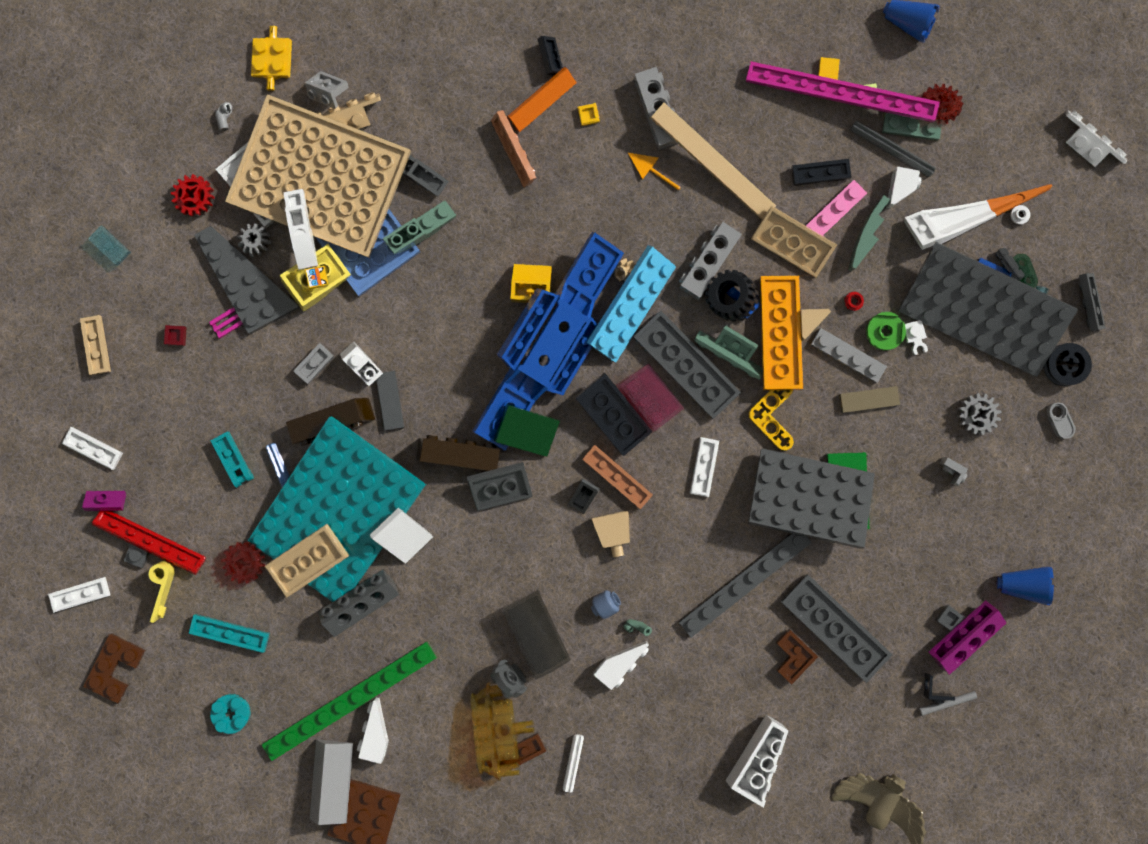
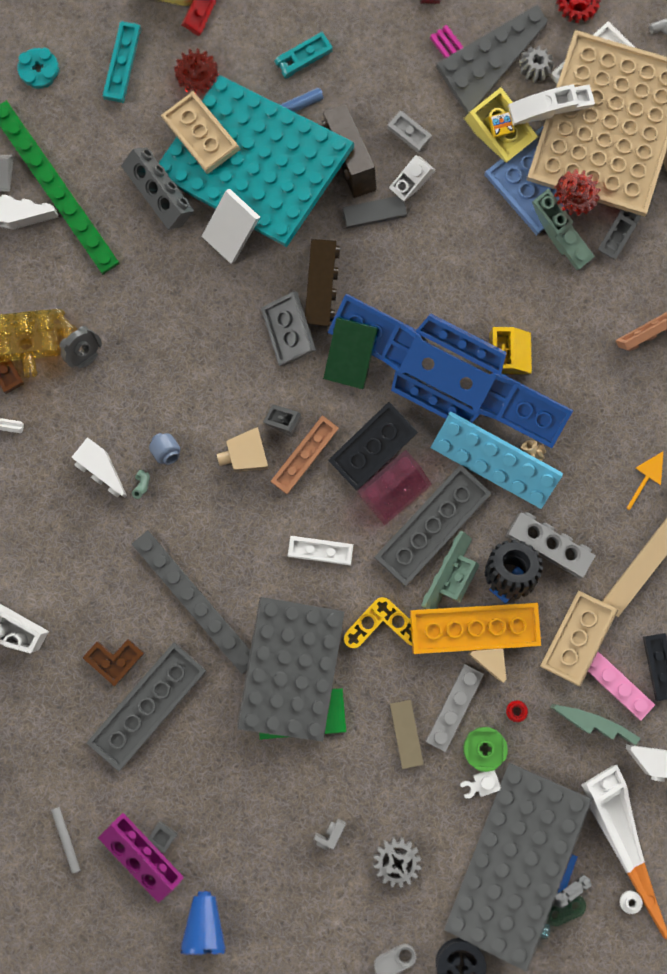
camera: 80 degrees right, 5 degrees down
(396, 207) = (573, 198): none -> clear red gear
(536, 634) = (129, 375): clear smoke slope -> none
(936, 697) = (71, 825): black bracket -> none

